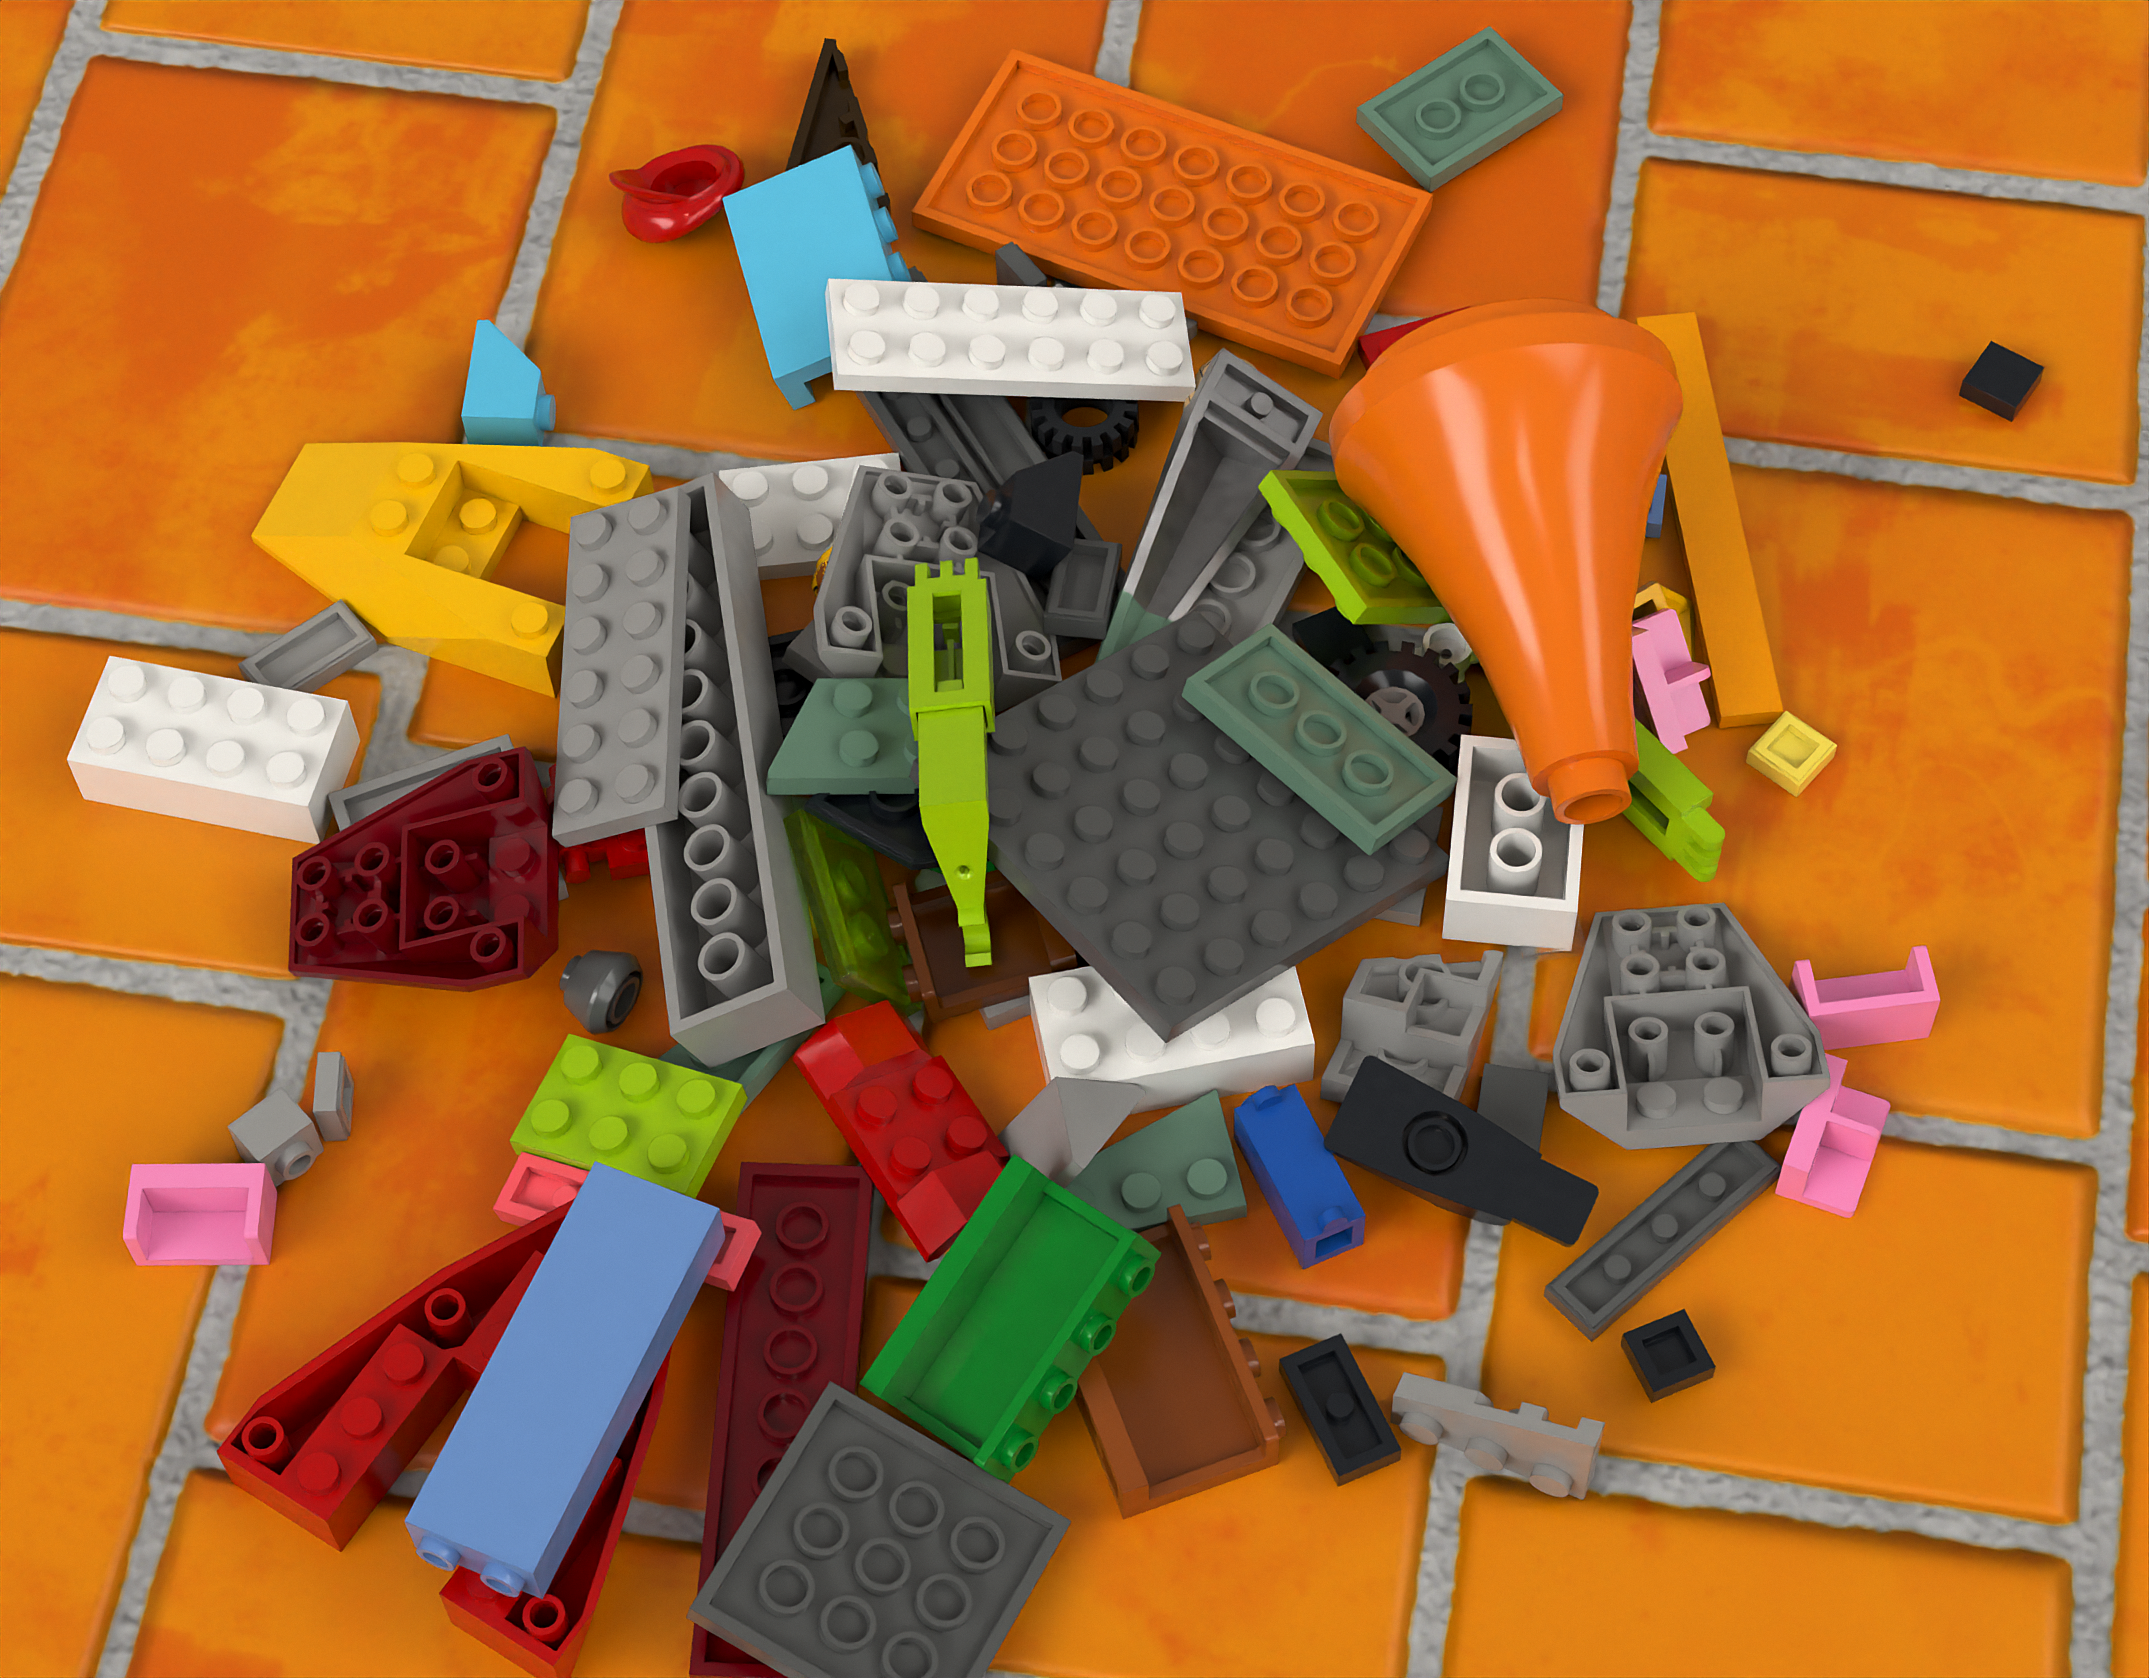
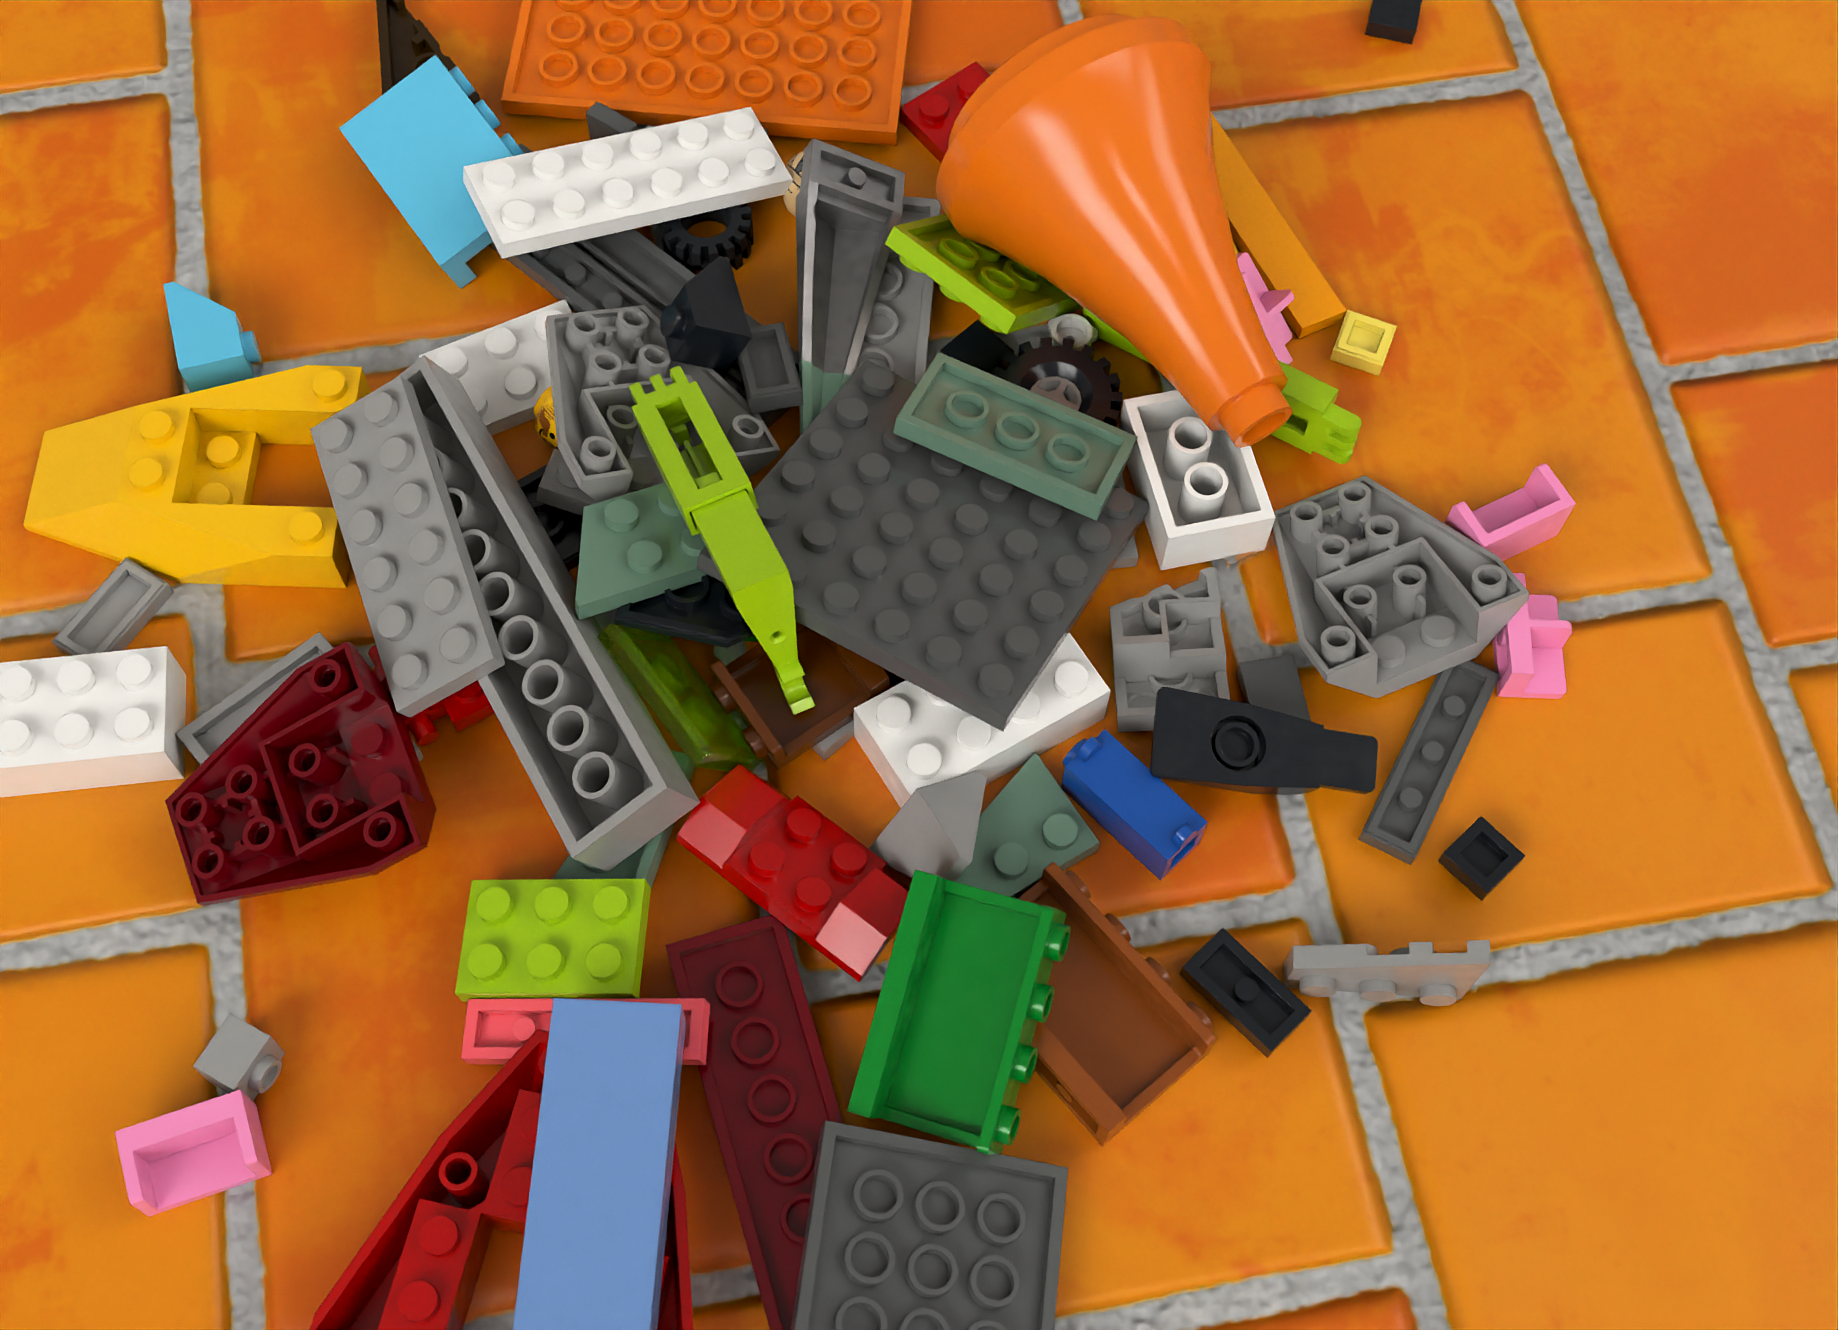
camera: 25 degrees left, 5 degrees up
(333, 1096) = (278, 1003): light grey tile -> none
(601, 988) = (484, 830): dark grey cone -> none
(677, 191) = (296, 134): red piece -> none

